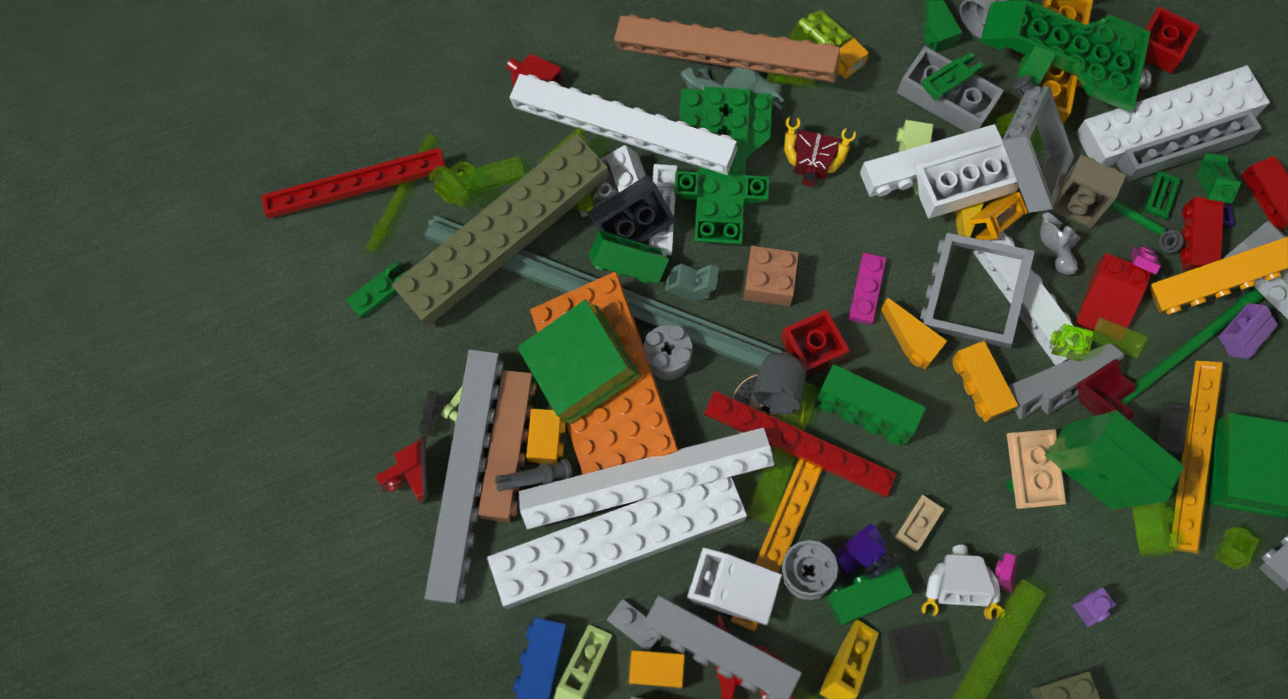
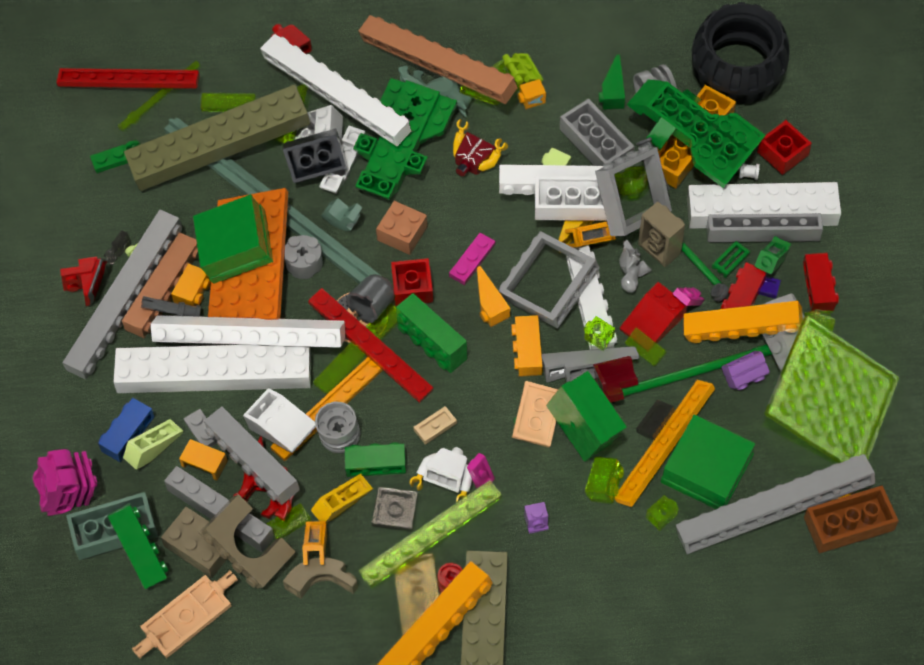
camera: 20 degrees right, 10 degrees down
(450, 185) = (195, 97): clear neon green tile -> none
(628, 257) = (300, 182): green brick -> none
(865, 549) = (386, 428): dark purple piece -> none
(951, 76) = (597, 124): green hinge -> none

